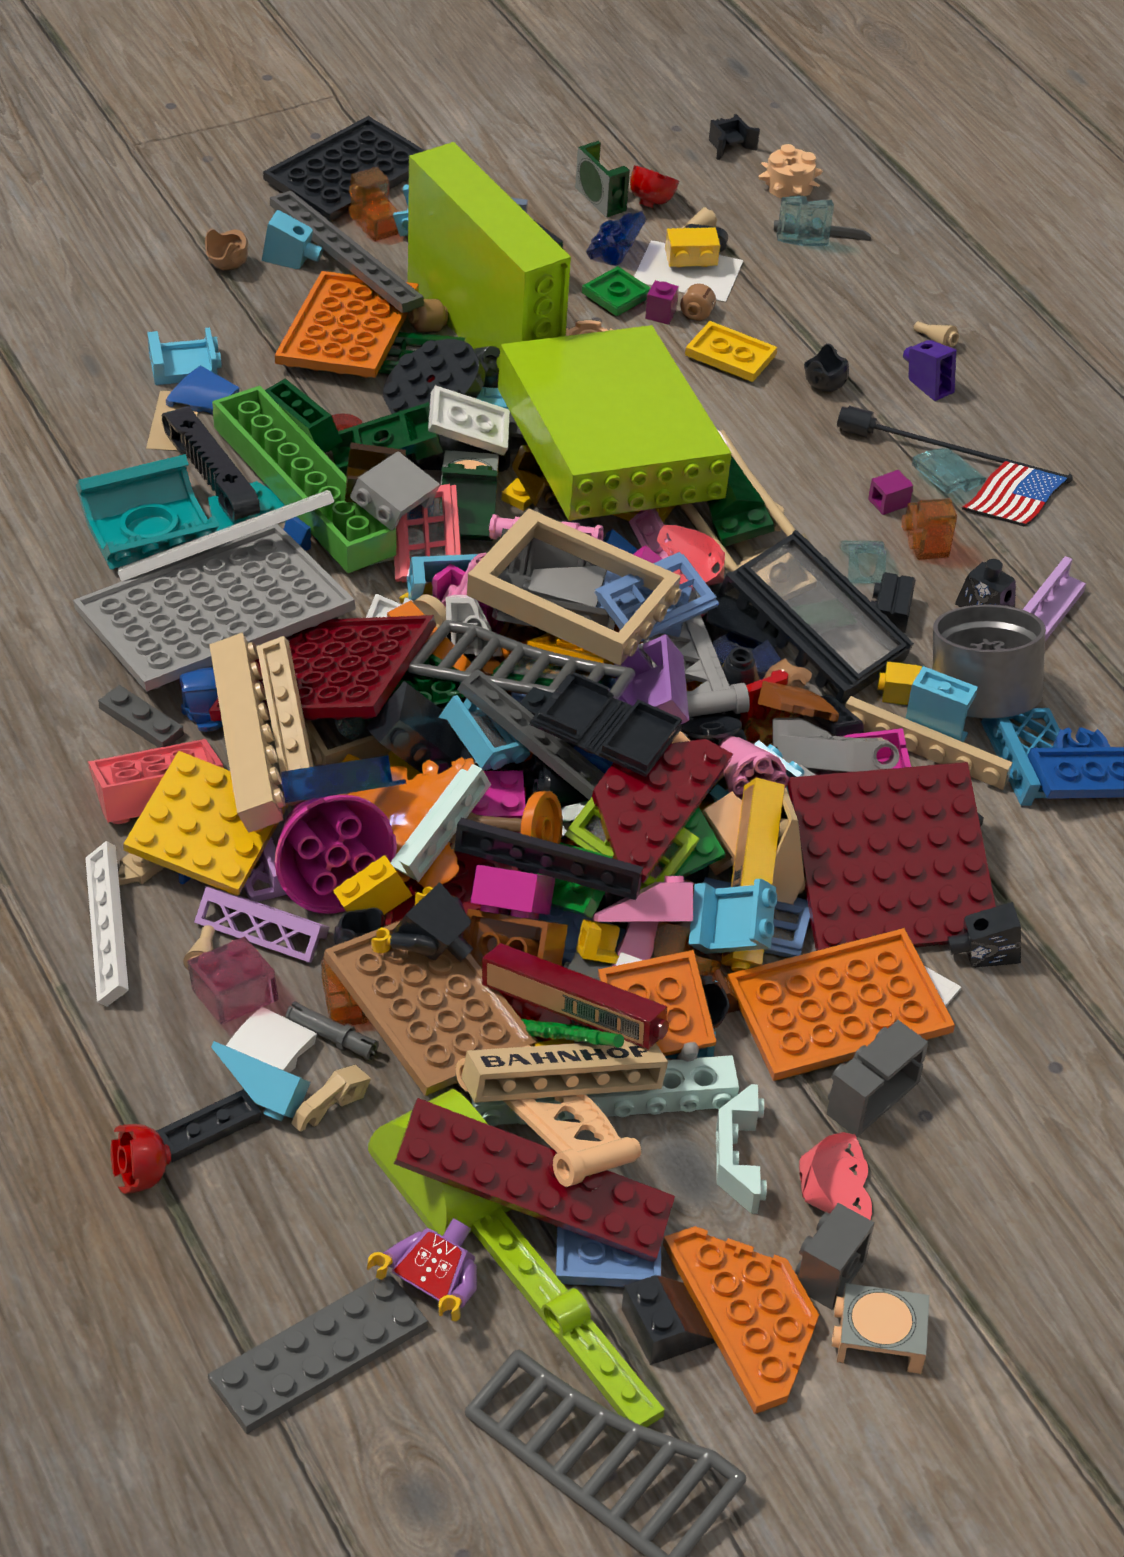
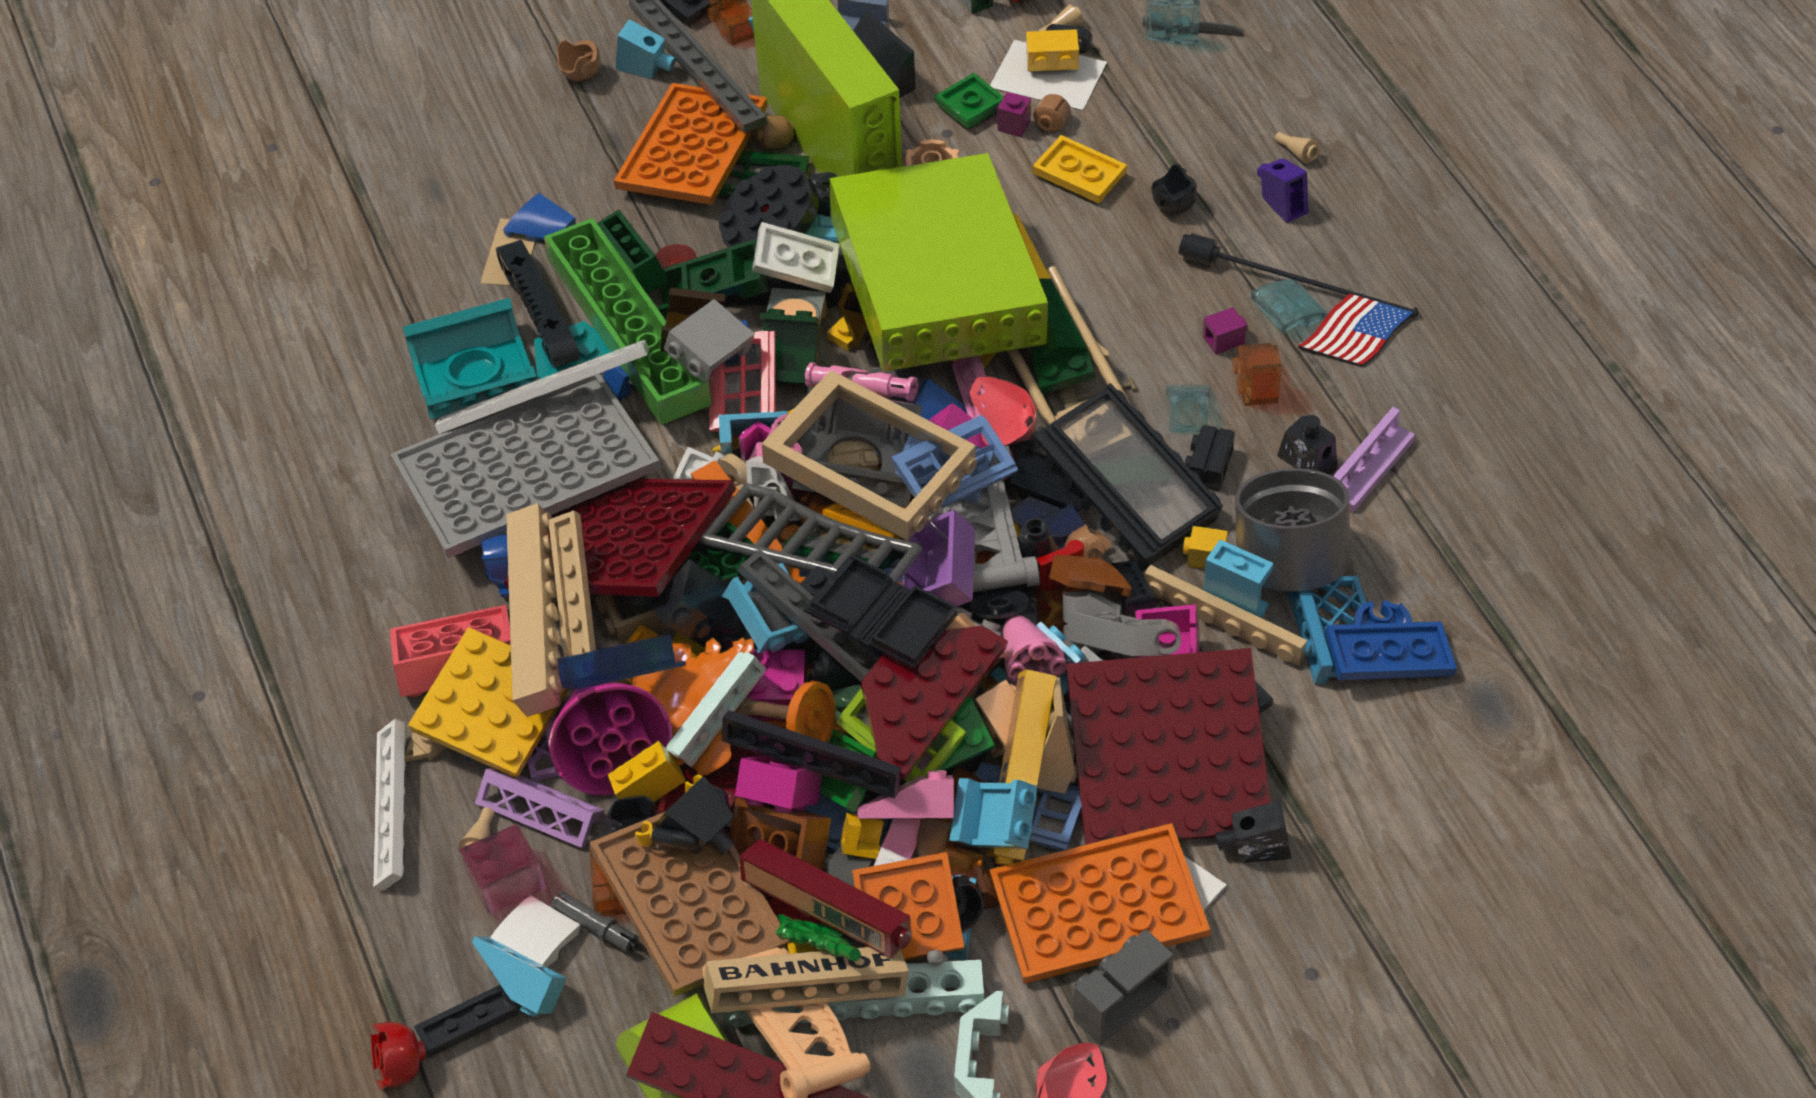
camera: 10 degrees right, 5 degrees up
(141, 717) = (445, 581): dark grey plate -> none
(175, 360) = (519, 183): medium azure panel -> none
(342, 1087) = (597, 984): tan piece -> none
(567, 584) = (866, 448): light grey slope -> none
(616, 238) = (975, 41): clear blue plate -> none

